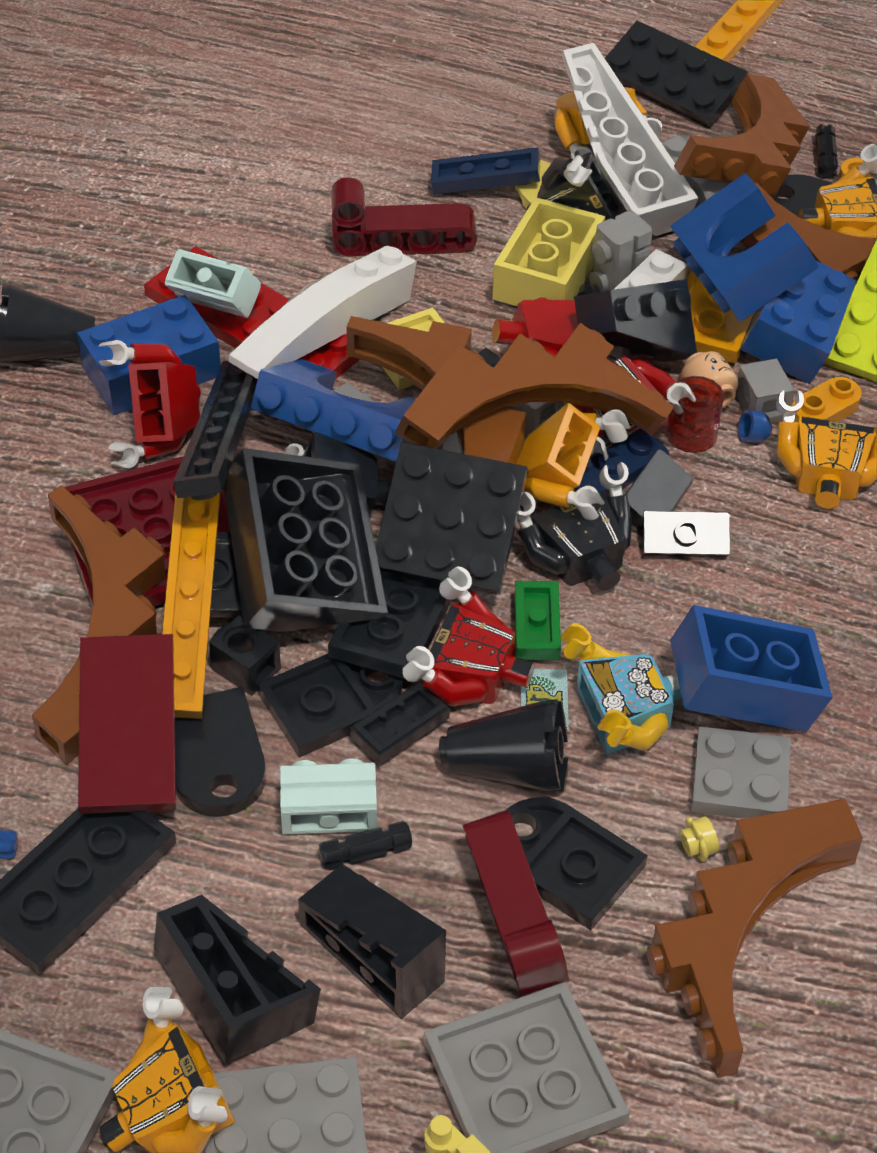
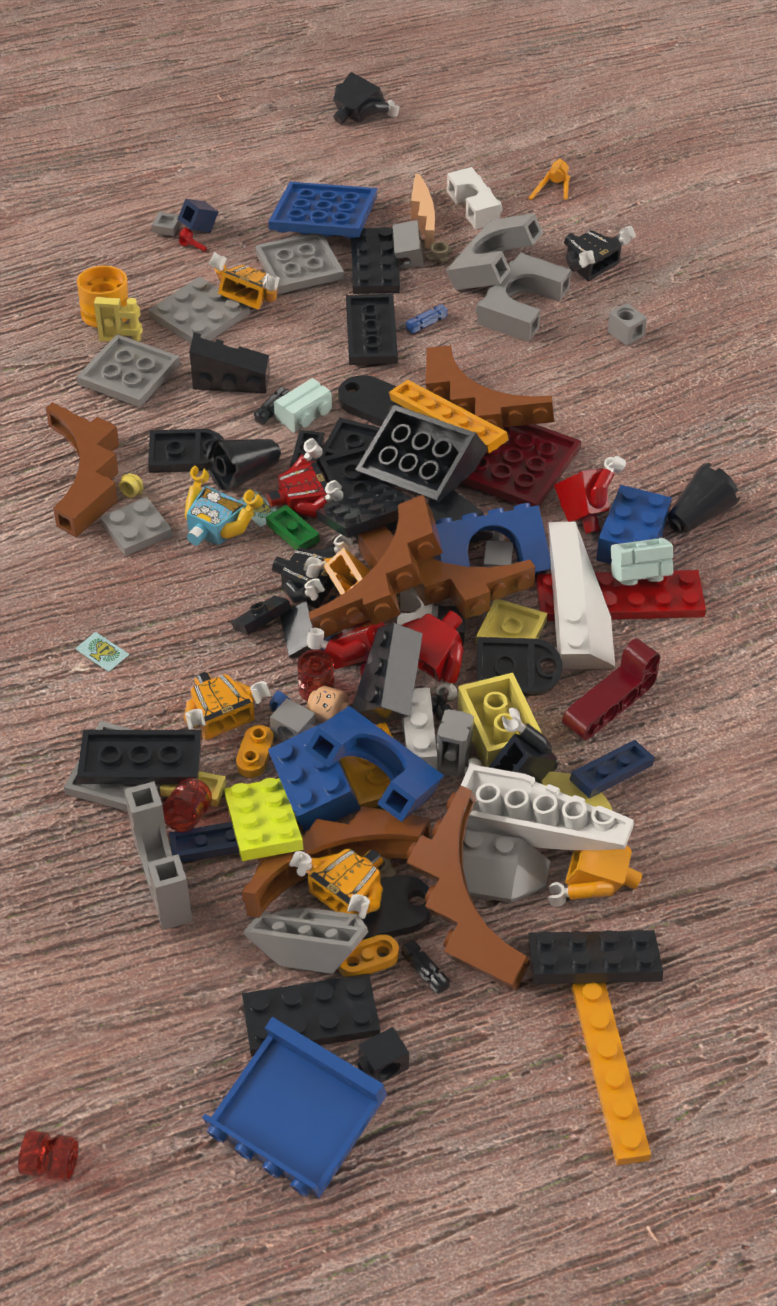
camera: 140 degrees right, 0 degrees up
(126, 724) = (409, 363): dark red tile -> none
(216, 434) = (514, 461): black plate -> none
(229, 981) = (268, 325): black wedge -> none
(458, 301) = (522, 658): none -> black tile
(516, 904) = (177, 407): dark red beam -> none
(750, 668) = (161, 542): blue brick -> none

